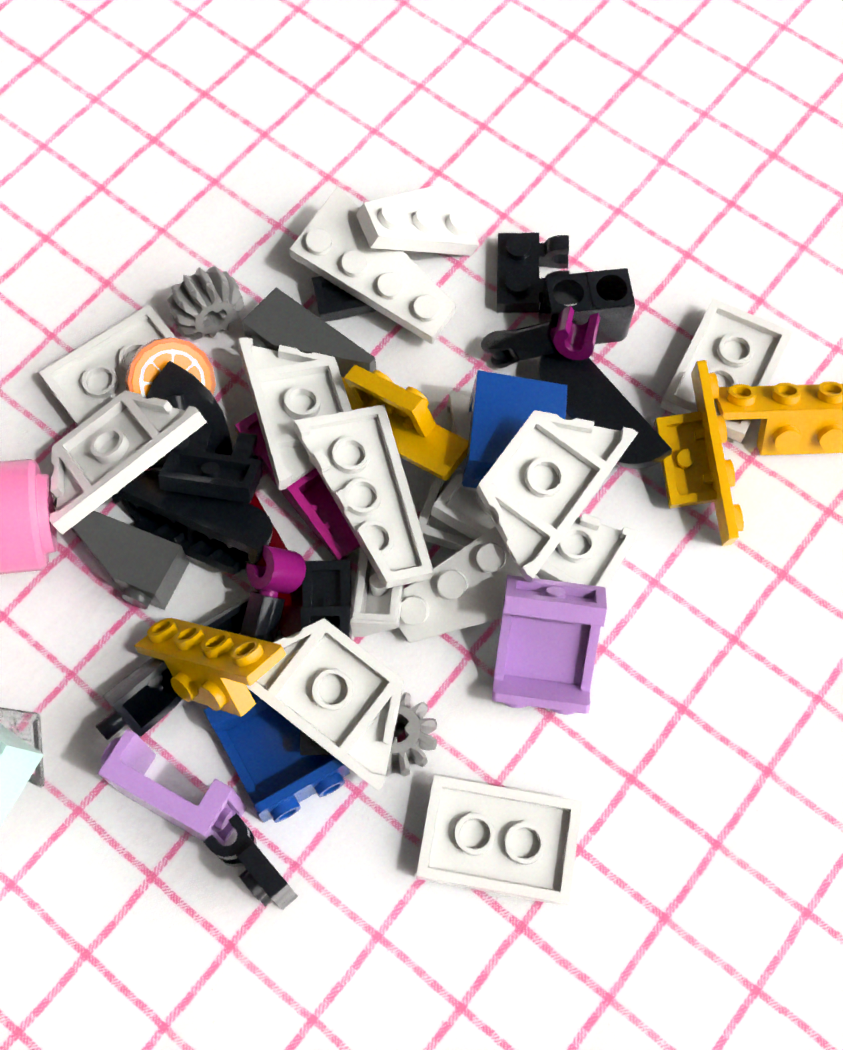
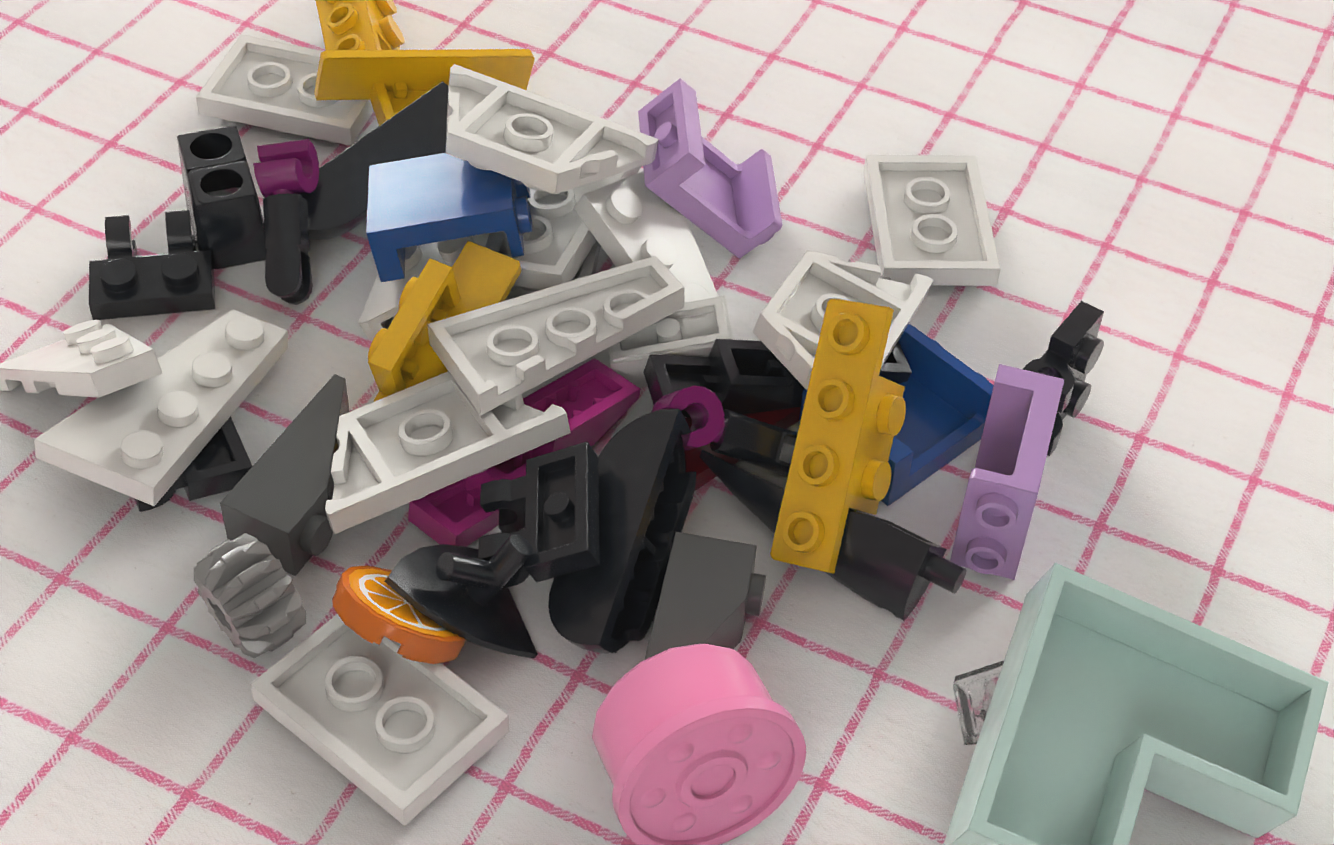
camera: 105 degrees left, 20 degrees down
(112, 451) = (549, 616): white wing -> none

